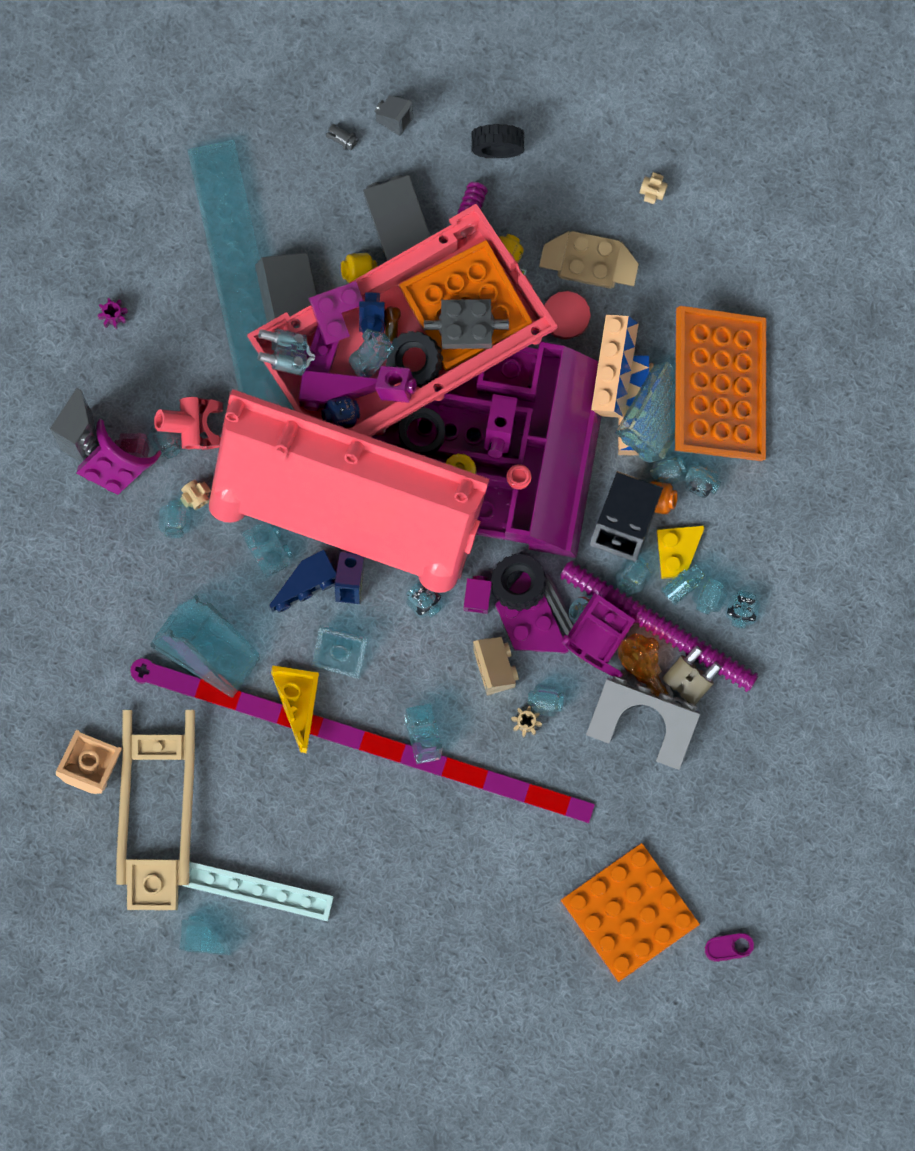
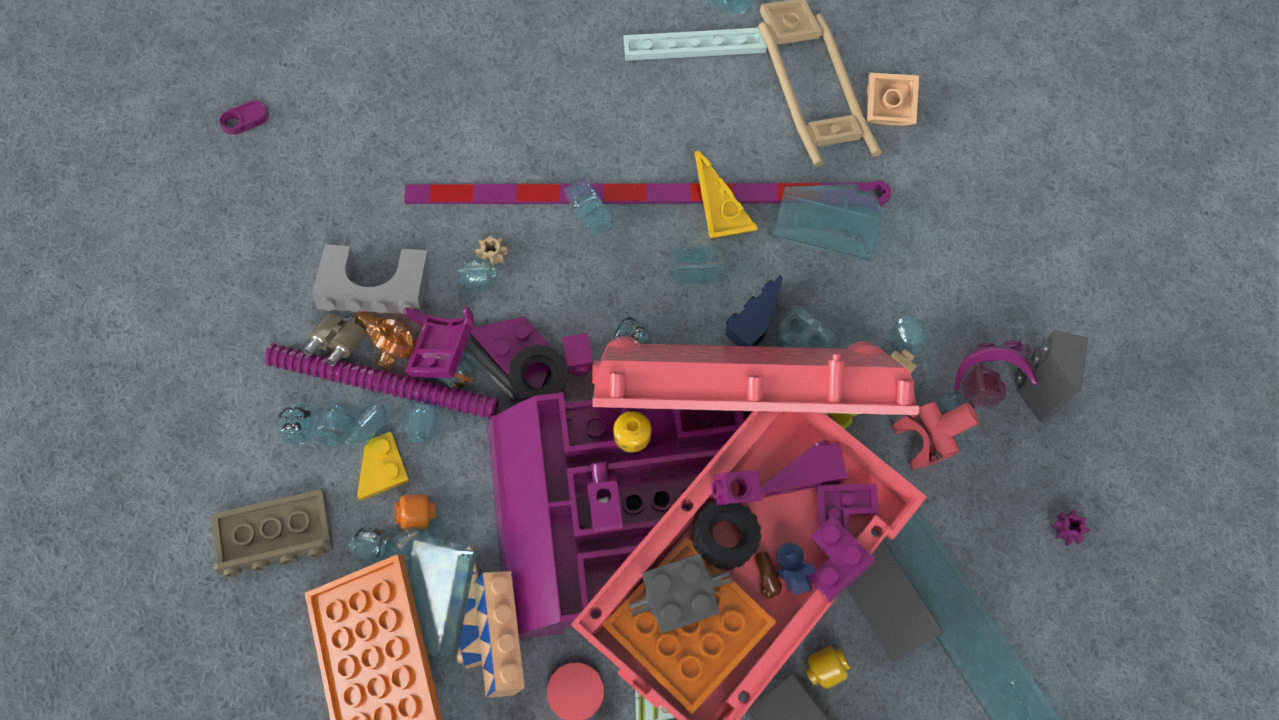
camera: 160 degrees right, 10 degrees down
(288, 351) = (872, 489): clear light blue piece -> none
(341, 412) = (785, 446): dark blue head -> none
(349, 578) = (713, 321): dark blue torso -> none
(371, 353) = (780, 520): clear light blue leg -> none
(440, 429) = (676, 446): black tyre -> none
(494, 664) = (539, 288): tan slope -> none
(518, 476) = (565, 451): coral plate -> none
(626, 516) = (441, 472): black slope -> none
(630, 912) = (345, 121): orange plate -> none
(782, 517) = (271, 533): none -> dark tan bracket

